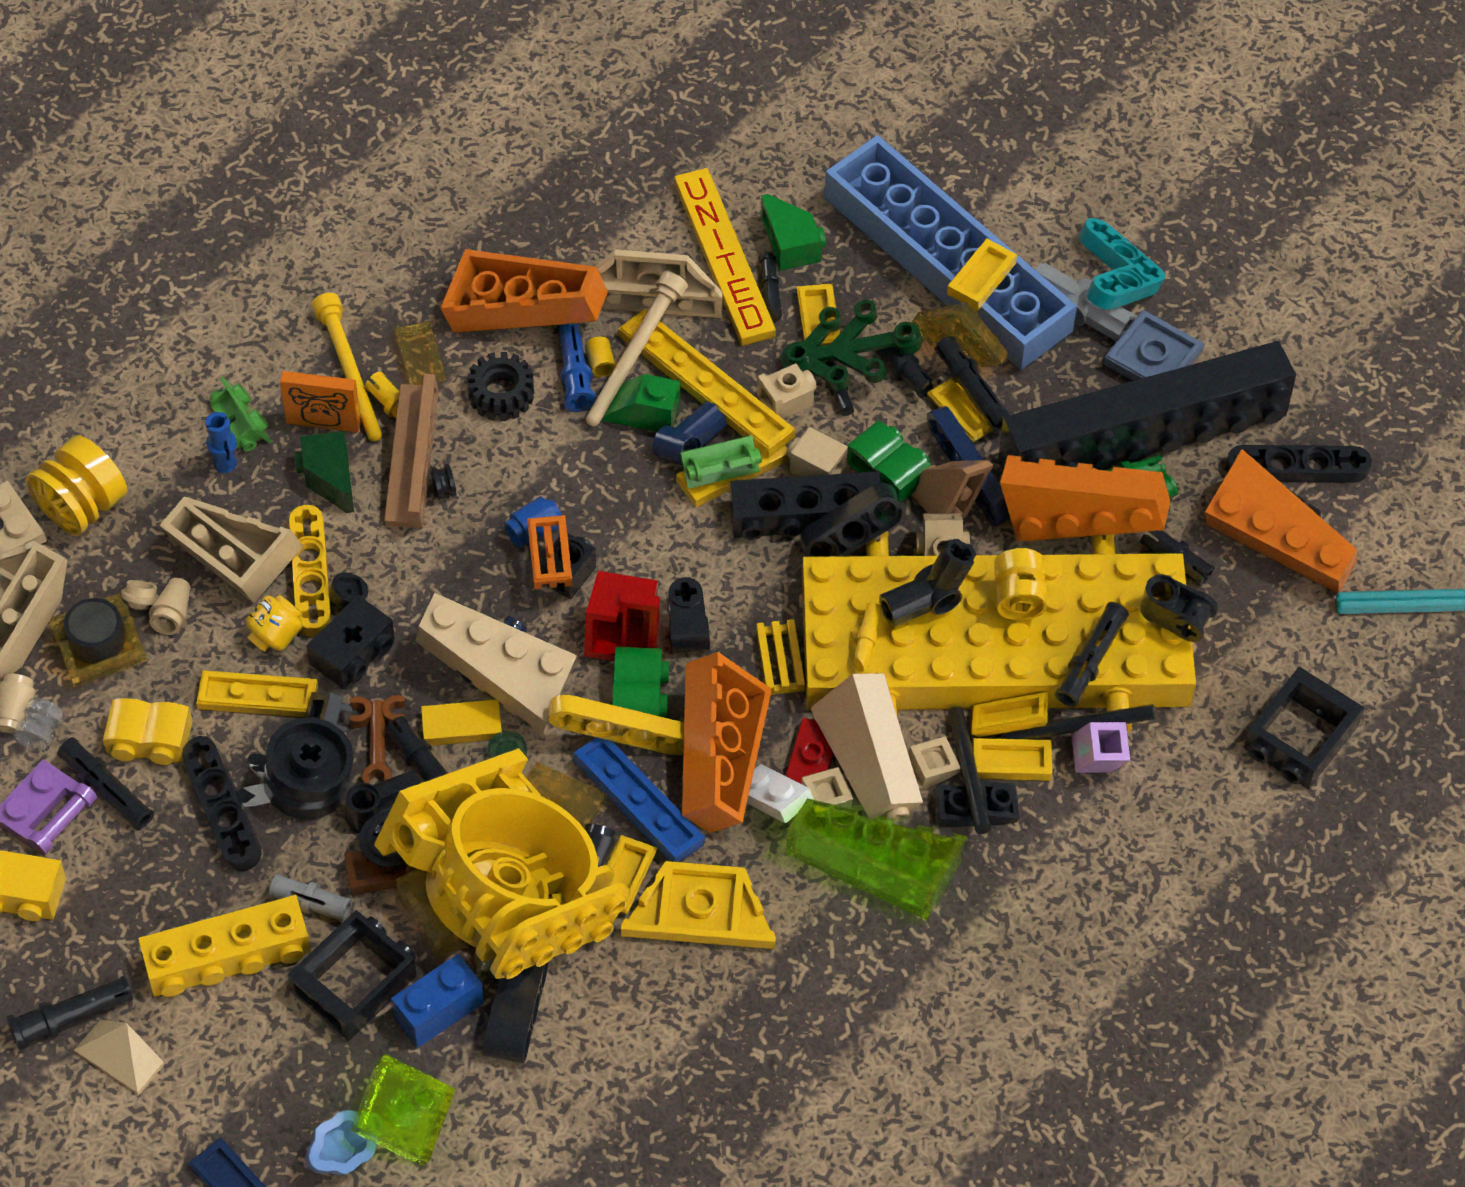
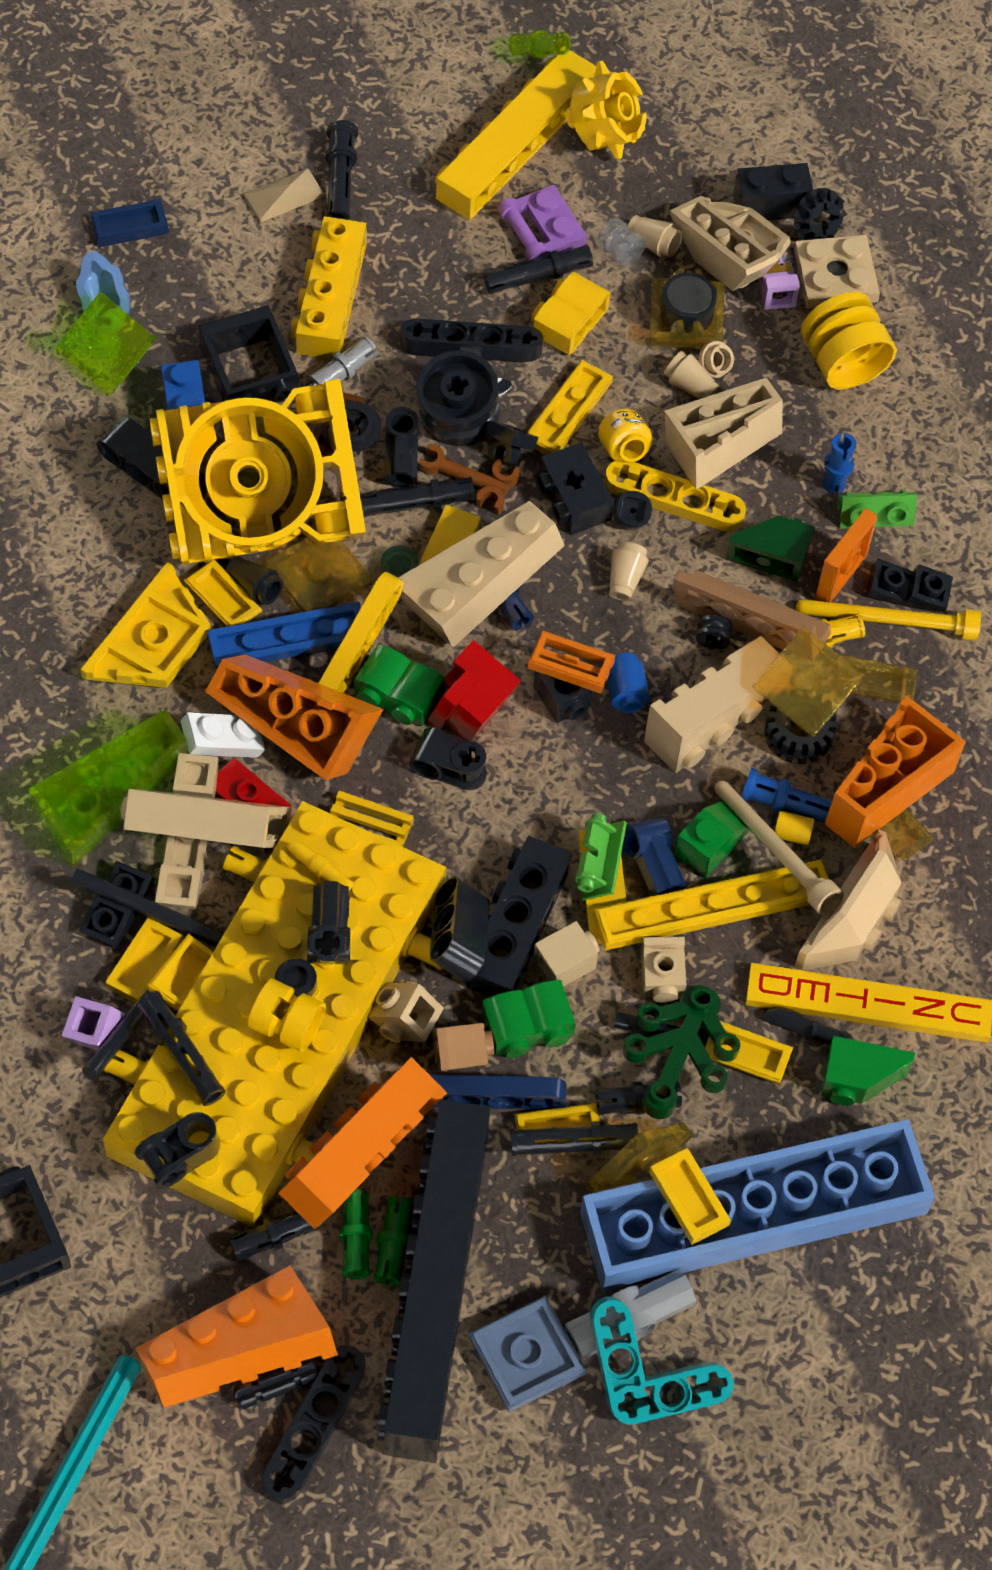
camera: 115 degrees right, 5 degrees up
(308, 353) = (915, 589): none -> black slope
(415, 570) = (627, 568): none -> tan cone
(476, 368) = (808, 681): none -> clear yellow plate
(520, 444) = (710, 709): none -> tan wedge
(979, 605) = (298, 975): none -> black tile

